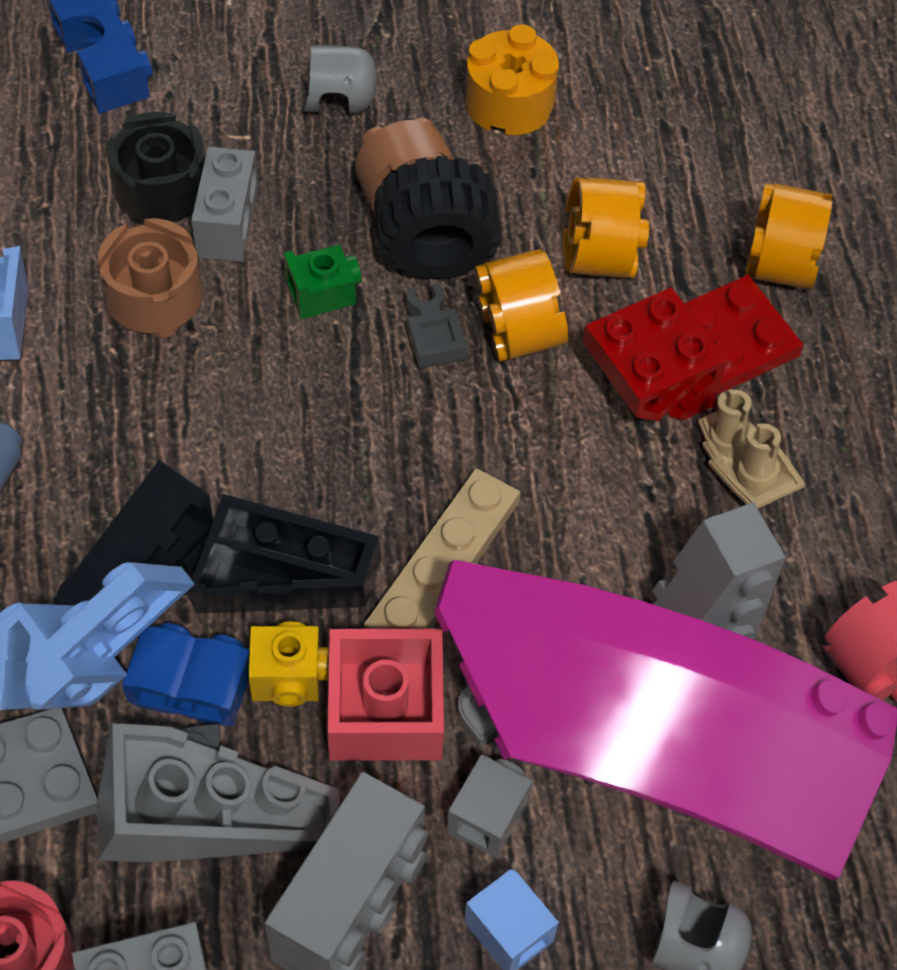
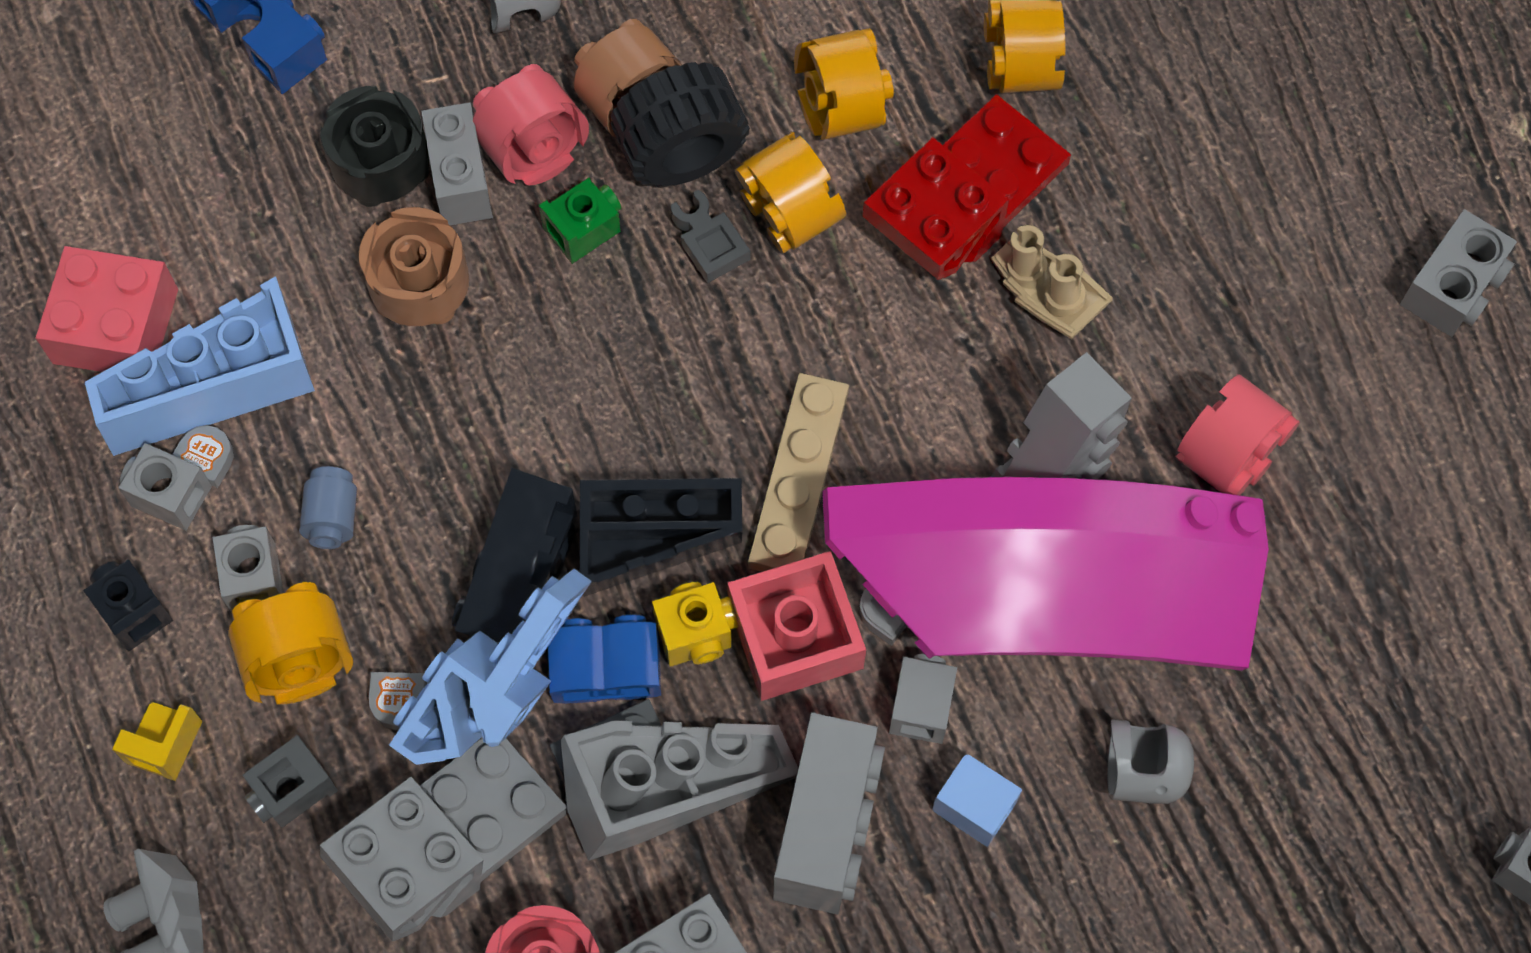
camera: 15 degrees left, 10 degrees up
(301, 187) = (529, 126): none -> coral brick

